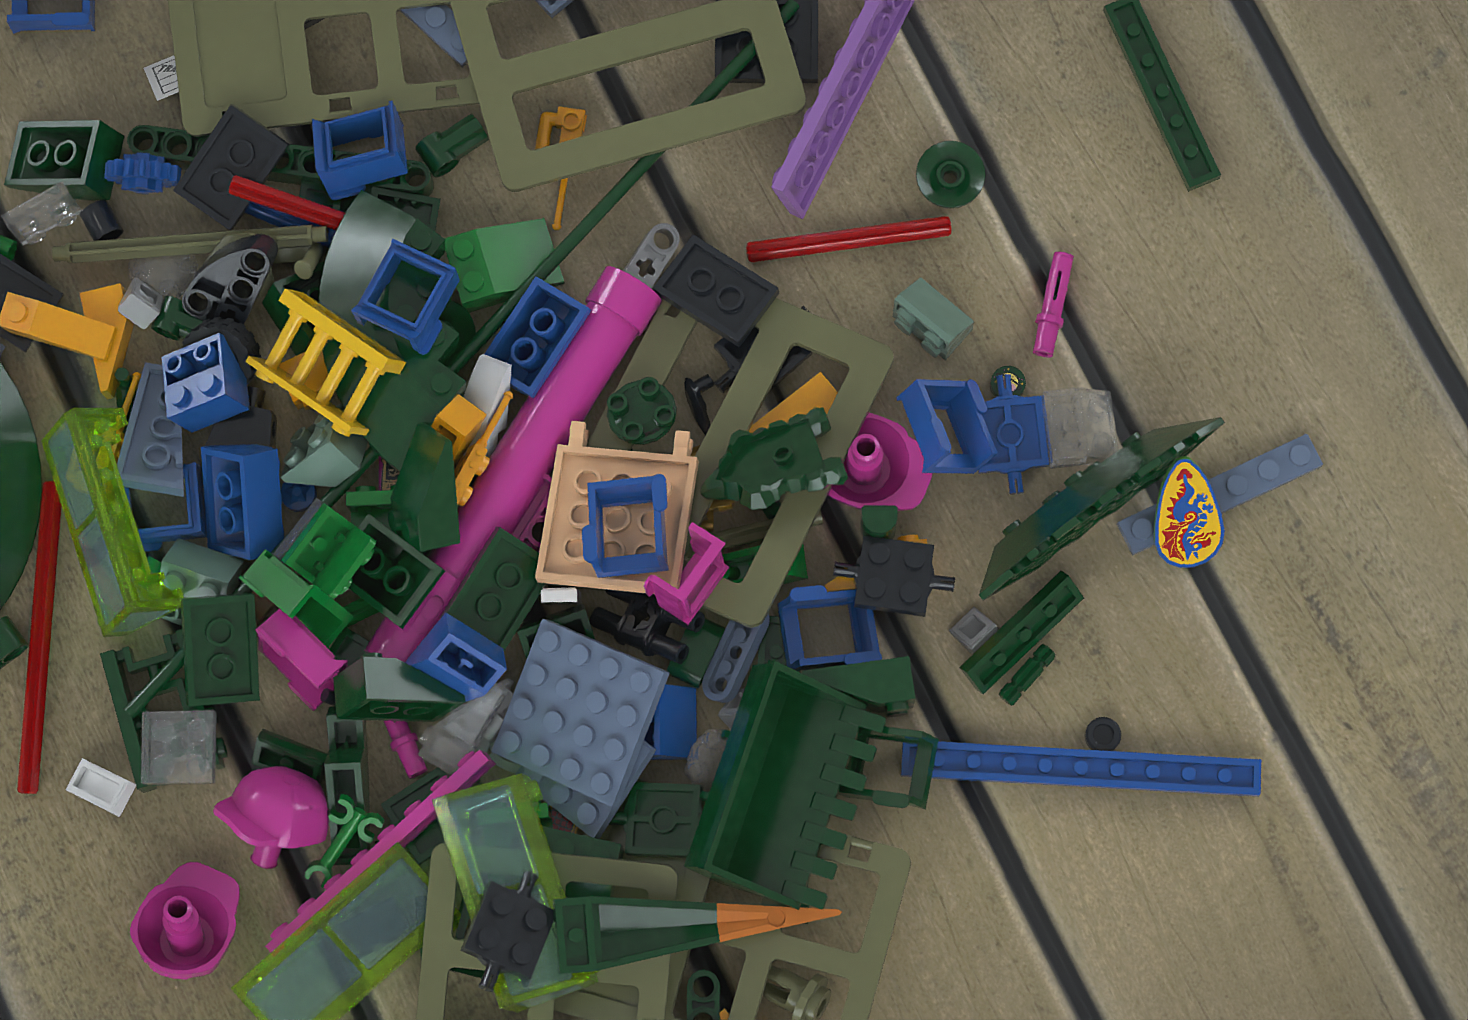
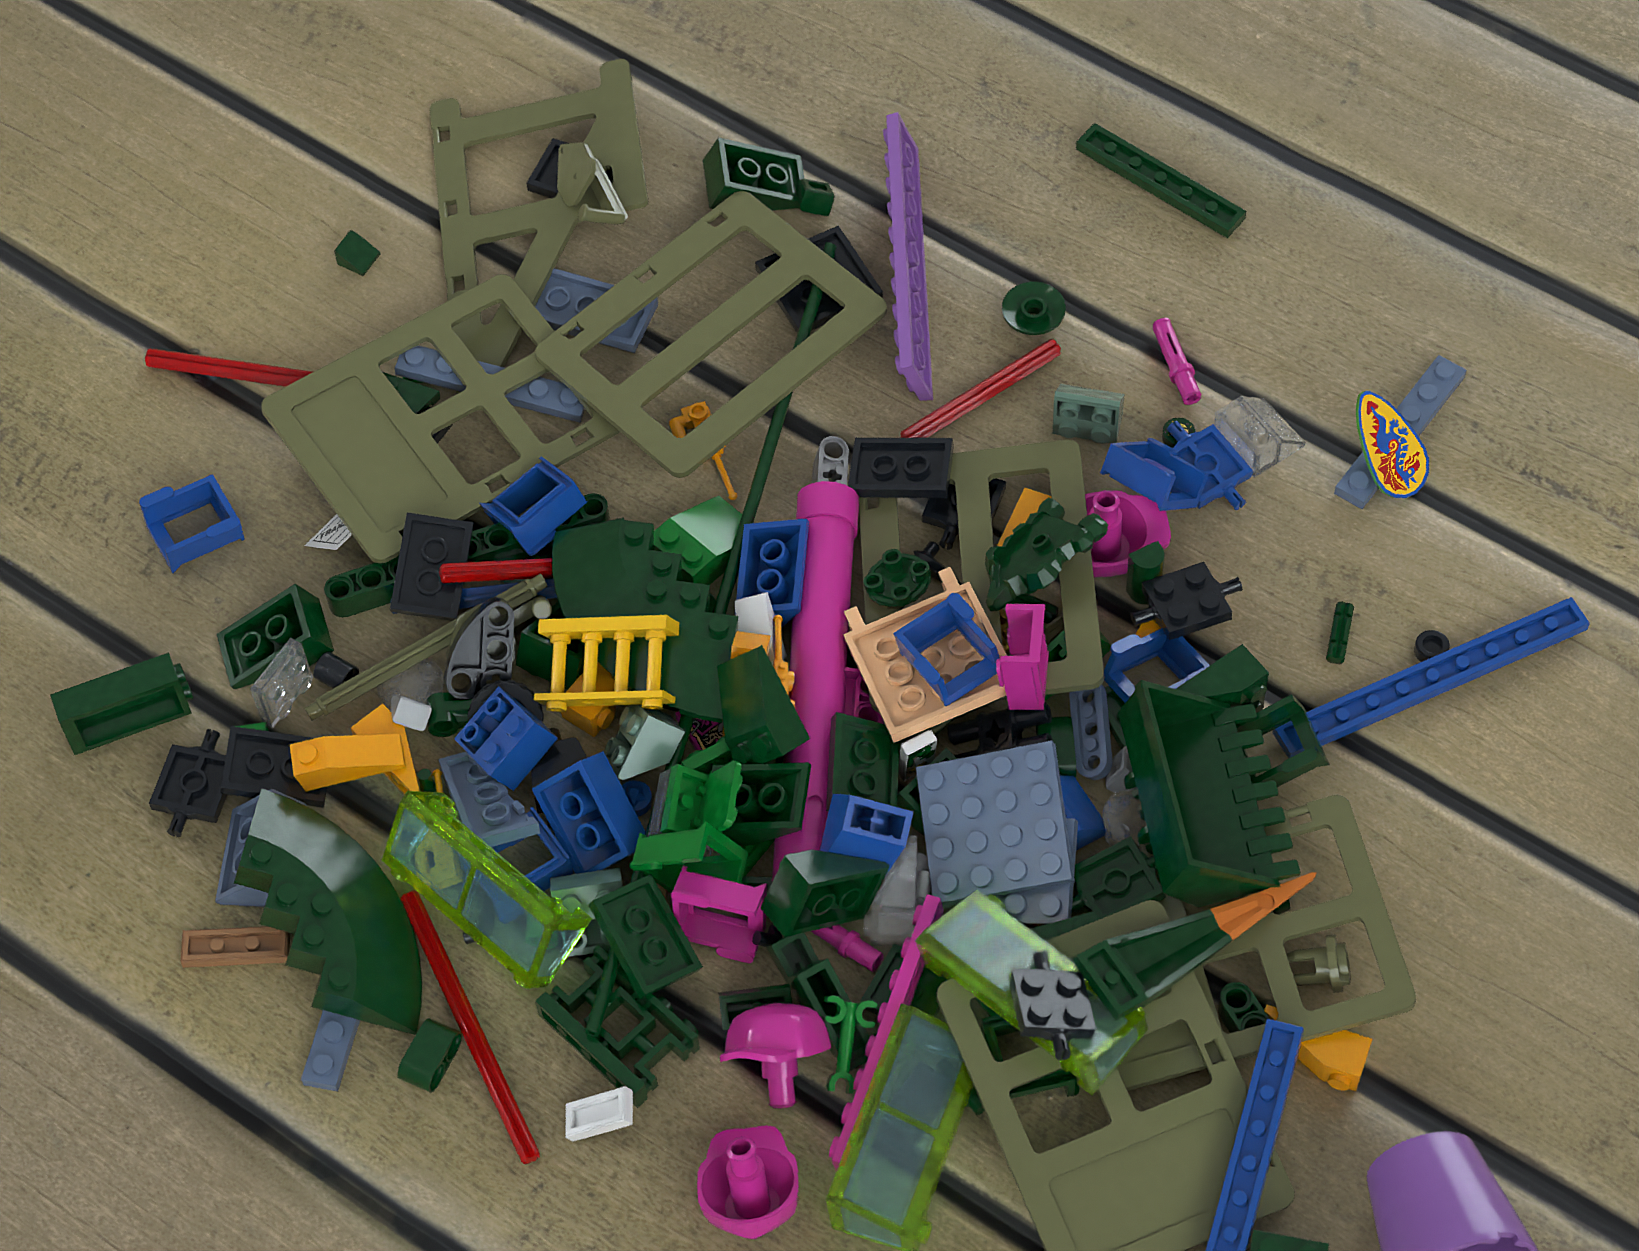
camera: 30 degrees left, 20 degrees down
(142, 173) = (354, 610): blue gear -> none
(178, 747) = (654, 1035): clear plate -> none
(427, 326) = (647, 539): blue piece -> none
(443, 150) = (609, 473): dark green piece -> none
(973, 630) = (1278, 623): light grey slope -> none
(1021, 632) = (1315, 601): dark green plate -> none
(1089, 499) = (1307, 470): dark green brick -> none

